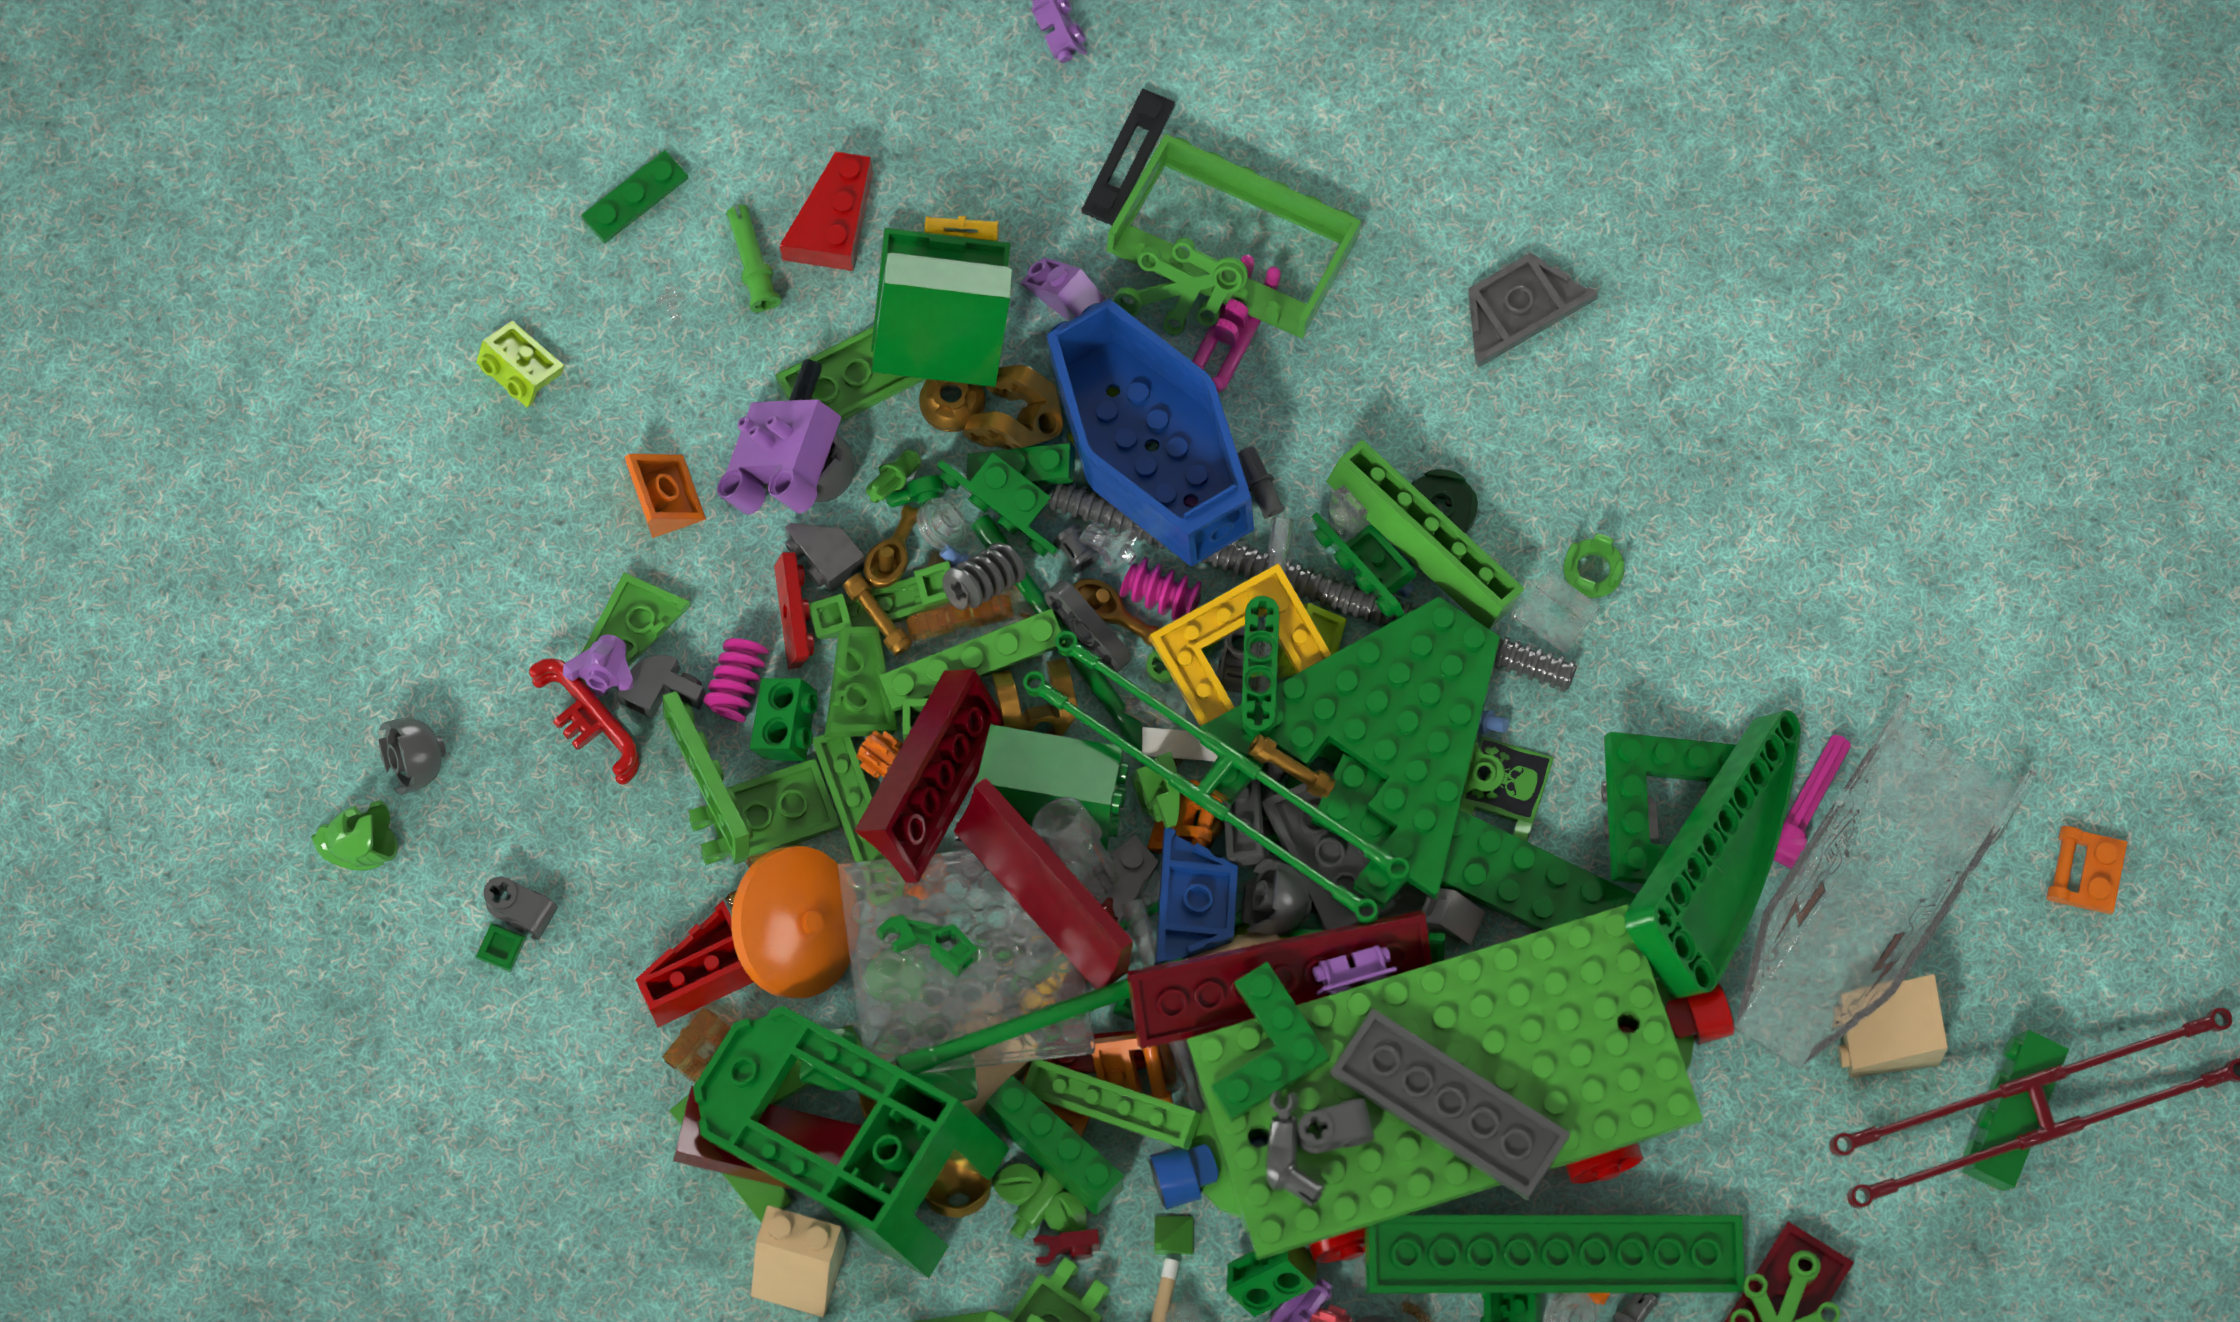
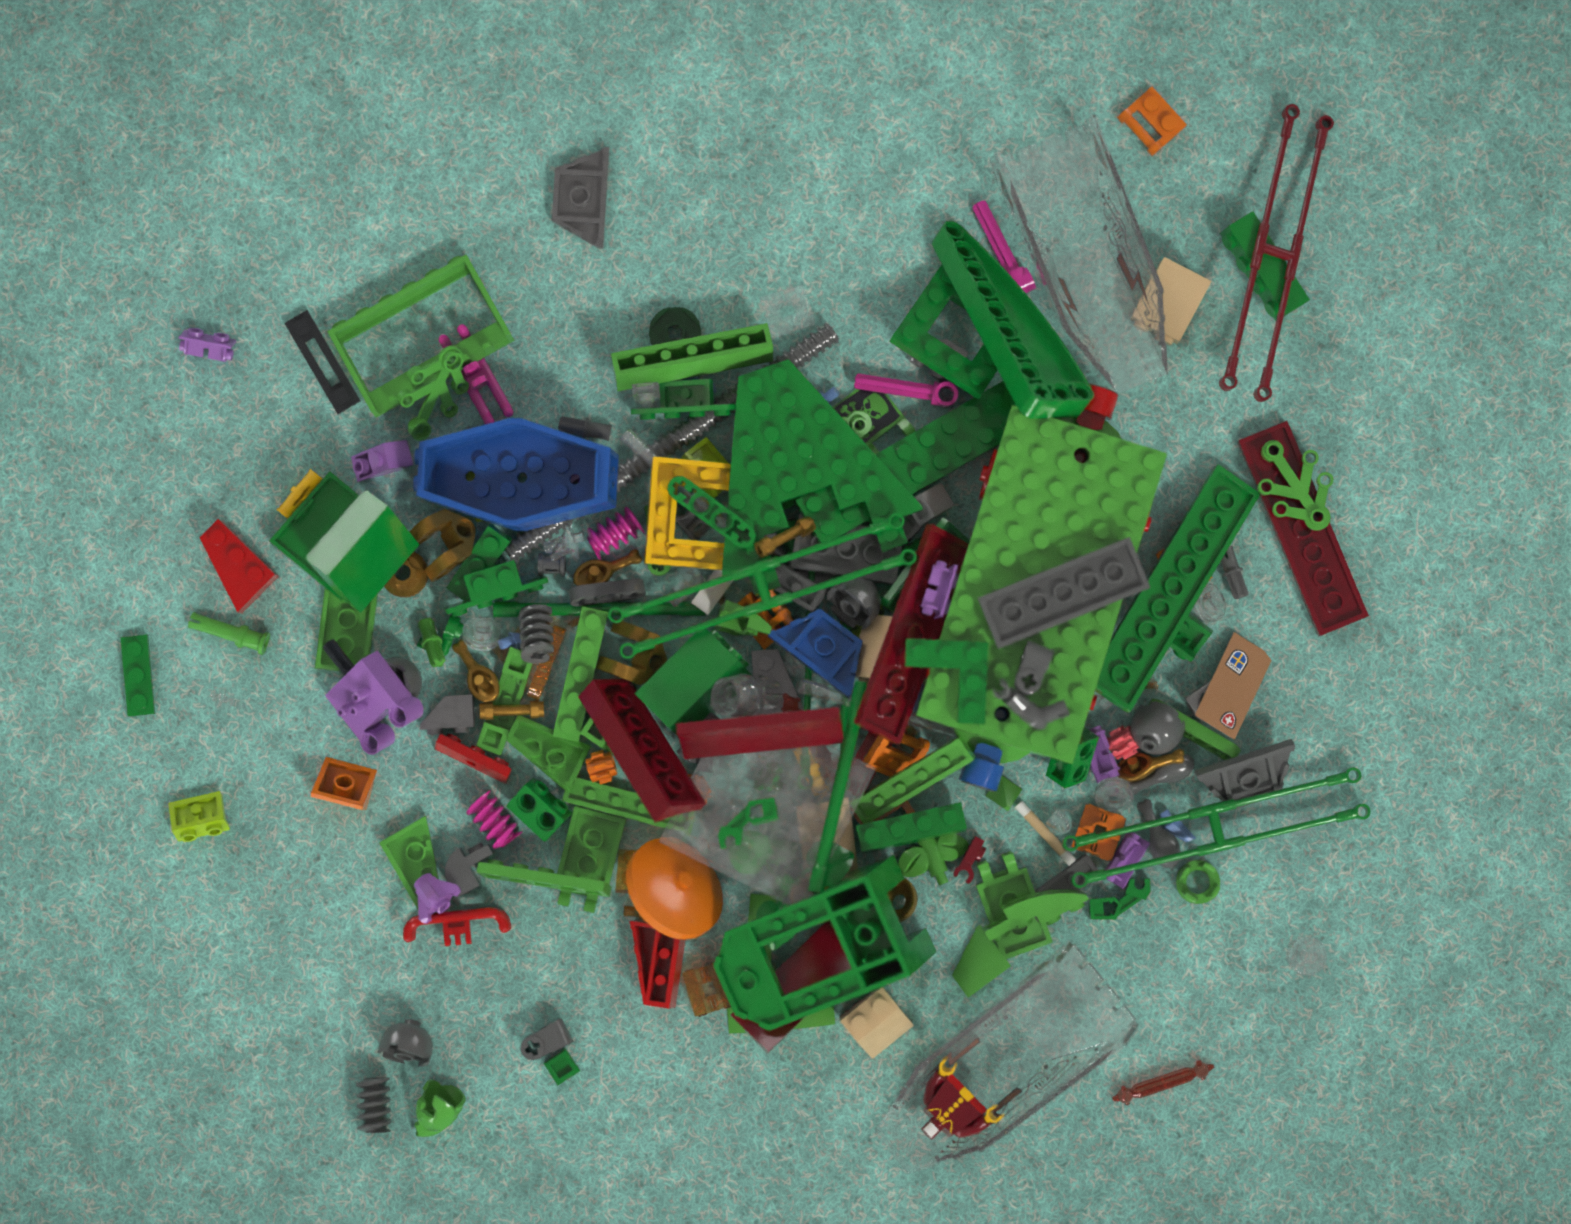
camera: 60 degrees left, 15 degrees up
(314, 765) = (373, 1105): none -> dark grey piece
(1568, 804) = (906, 388): none -> dark pink axle
(1601, 546) = (767, 256): bright green piece -> none

